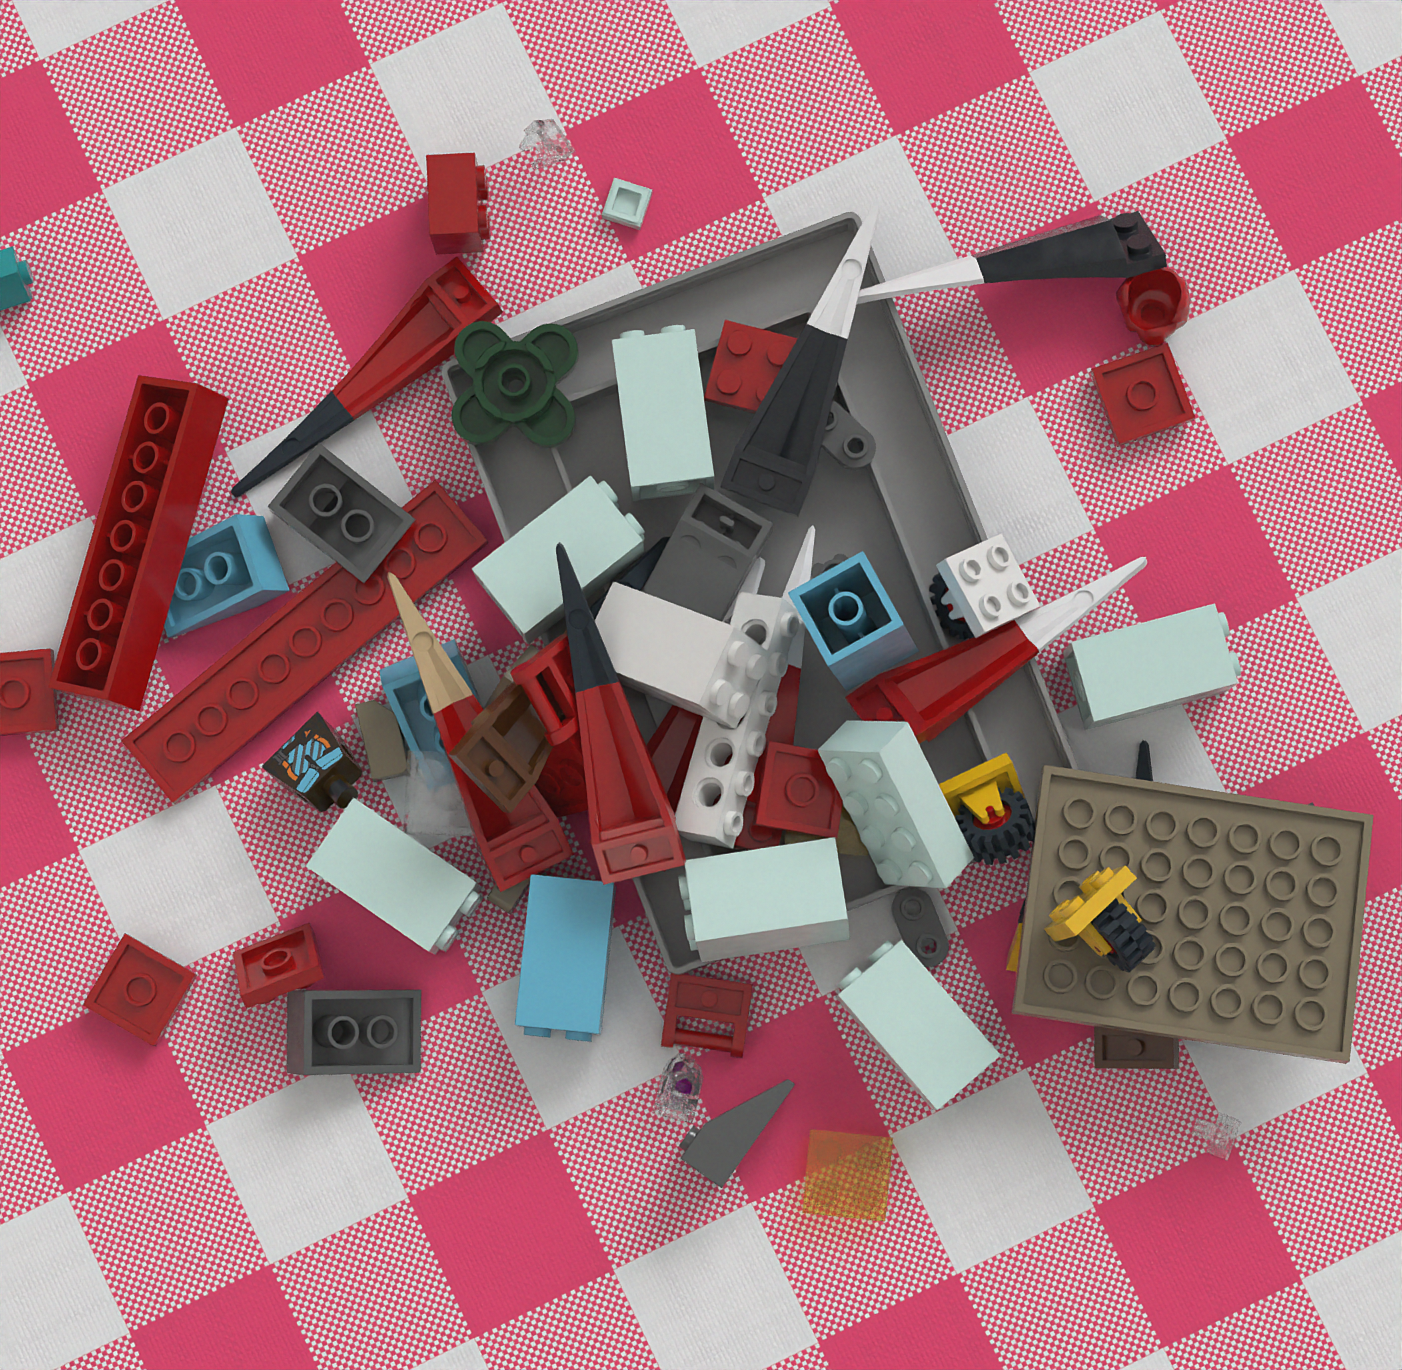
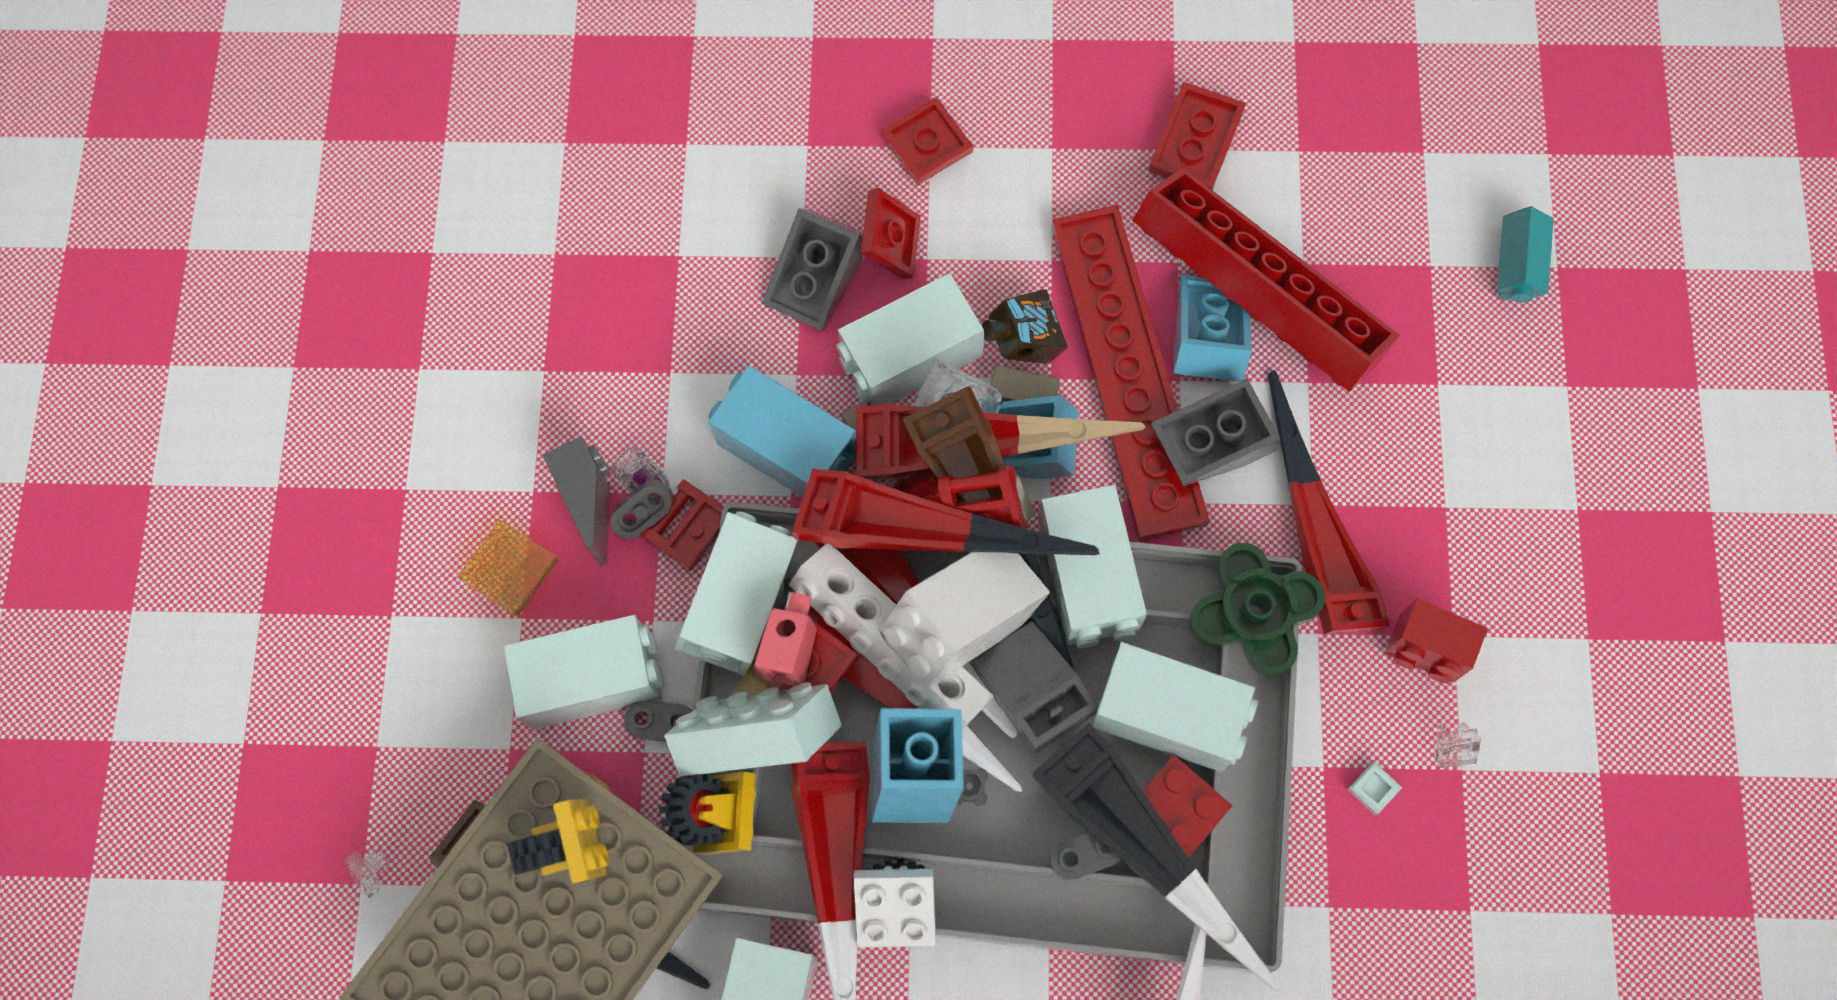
camera: 120 degrees right, 10 degrees down
(712, 1061) = (643, 507): none -> dark grey plate
(815, 803) = (784, 657): none -> coral torso

